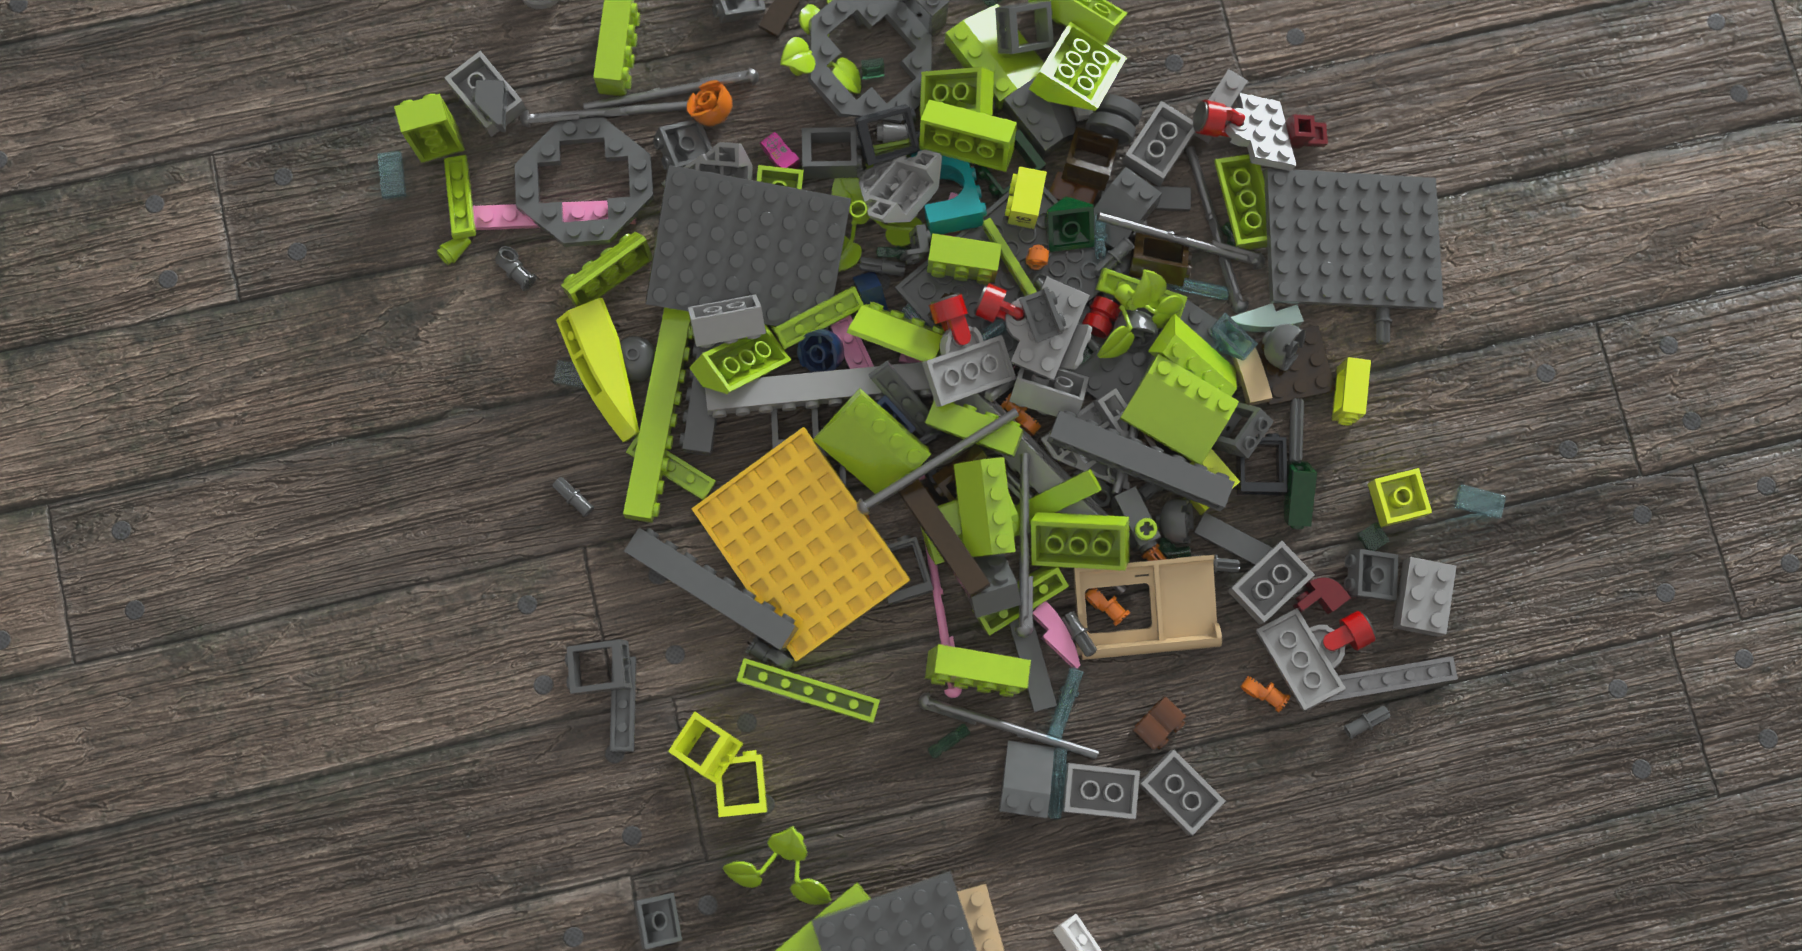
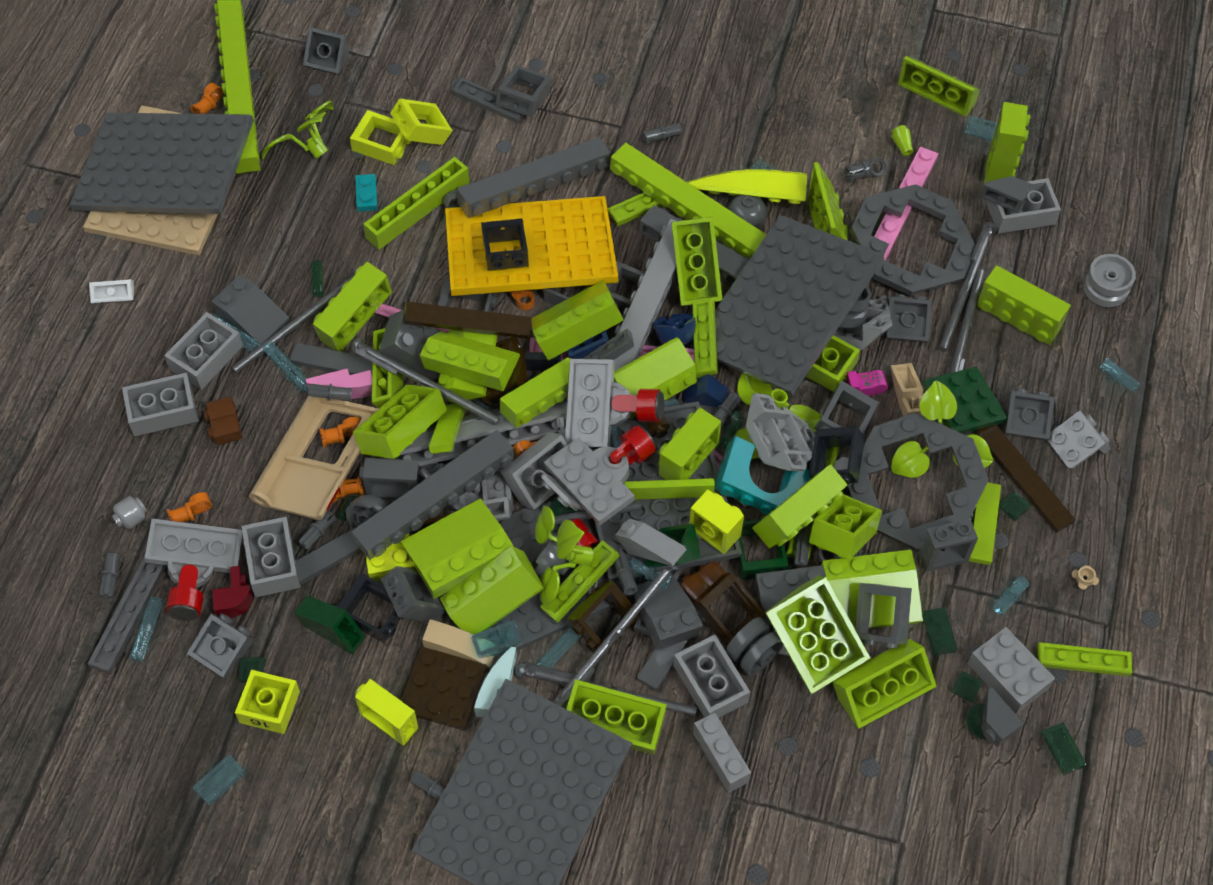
camera: 125 degrees right, 20 degrees down
(359, 241) = (937, 86): none -> lime slope
(459, 197) = (943, 157): lime tile -> none
(710, 104) = (934, 348): orange cylinder -> none
(726, 321) = (734, 256): light grey brick -> none
(753, 55) = (975, 401): none -> dark green plate
(768, 111) = (907, 388): none -> tan slope
(806, 570) = (505, 259): none -> black window
(815, 759) = (366, 192): none -> teal plate
(864, 507) = (528, 286): flat silver bar -> none
(872, 68) = (908, 486): clear green tile -> none
(919, 240) = (729, 428): dark grey bracket -> none
(1037, 256) = (658, 504): orange connector -> none
(1043, 315) = (600, 467): dark grey bracket -> none
(1084, 239) = (649, 543): none -> light grey slope
(1140, 524) = (372, 459): lime bush -> none
(1254, 124) = (676, 759): plate -> none
(1283, 344) = (460, 672): dark grey cylinder -> none
(1296, 431) = (383, 653): dark grey axle -> none
(1301, 745) = (129, 512): none -> light grey head
(1306, 132) = (652, 815): dark red brick -> none
(1393, 654) = (146, 629): none -> clear light blue axle
(1424, 596) = (172, 676): light grey brick -> none

